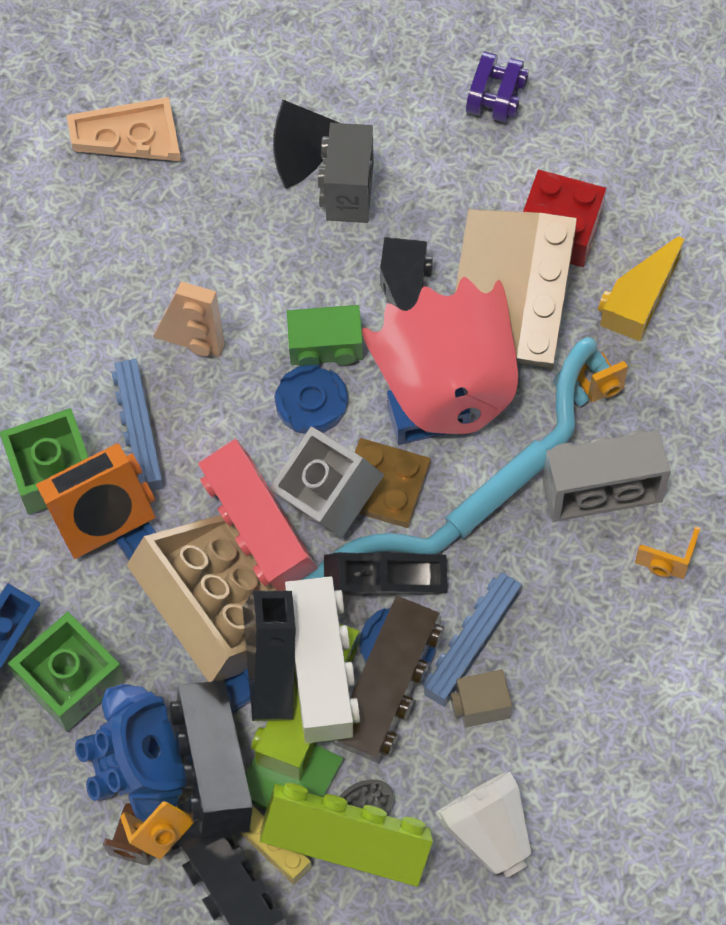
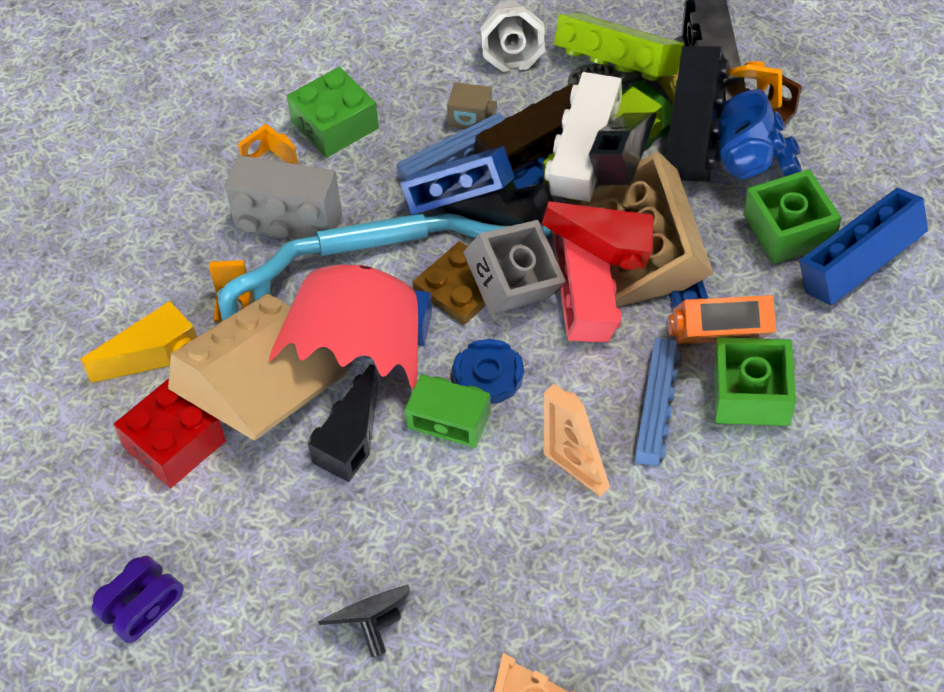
camera: 155 degrees left, 10 degrees down
(241, 529) = (609, 234): none -> red slope
(347, 172) = (342, 542): dark grey brick -> none
(433, 559) = (457, 180): none -> blue brick
(631, 626) = (333, 111): none -> bright green brick

